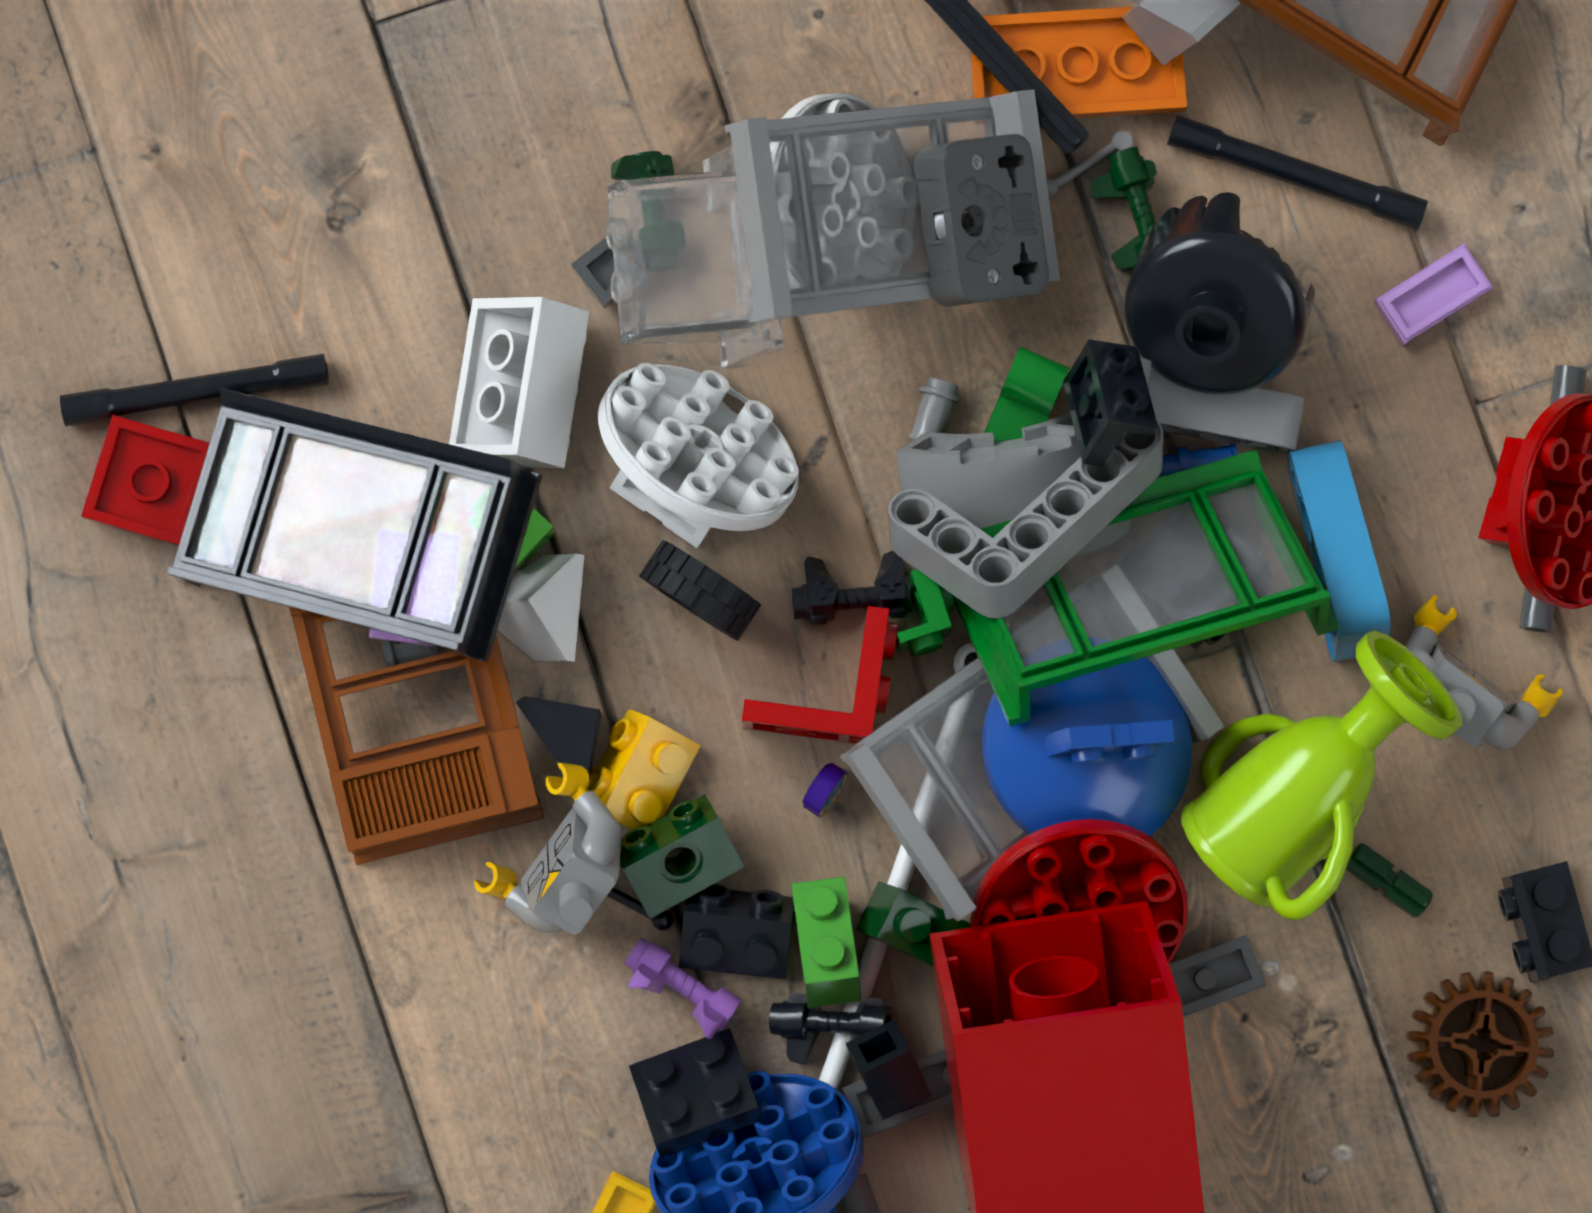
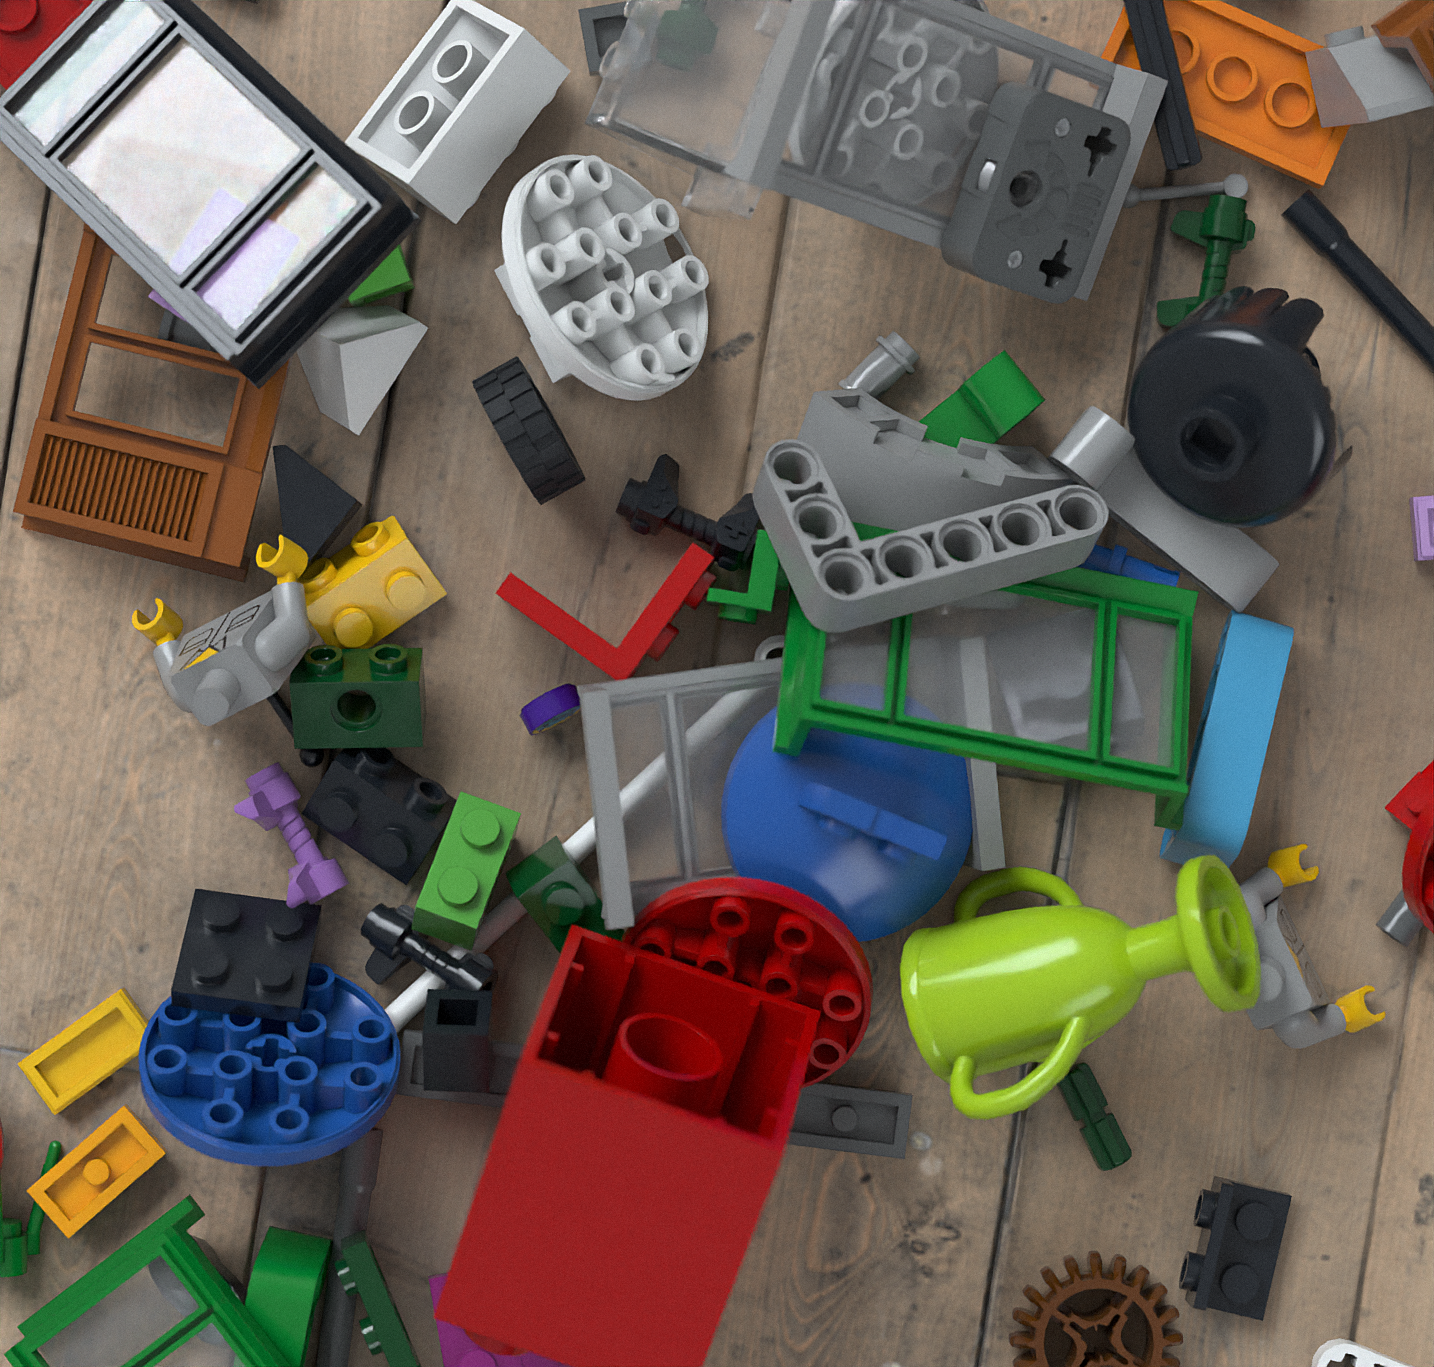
camera: 25 degrees right, 5 degrees up
(1107, 398) = (1065, 456): black bracket -> none

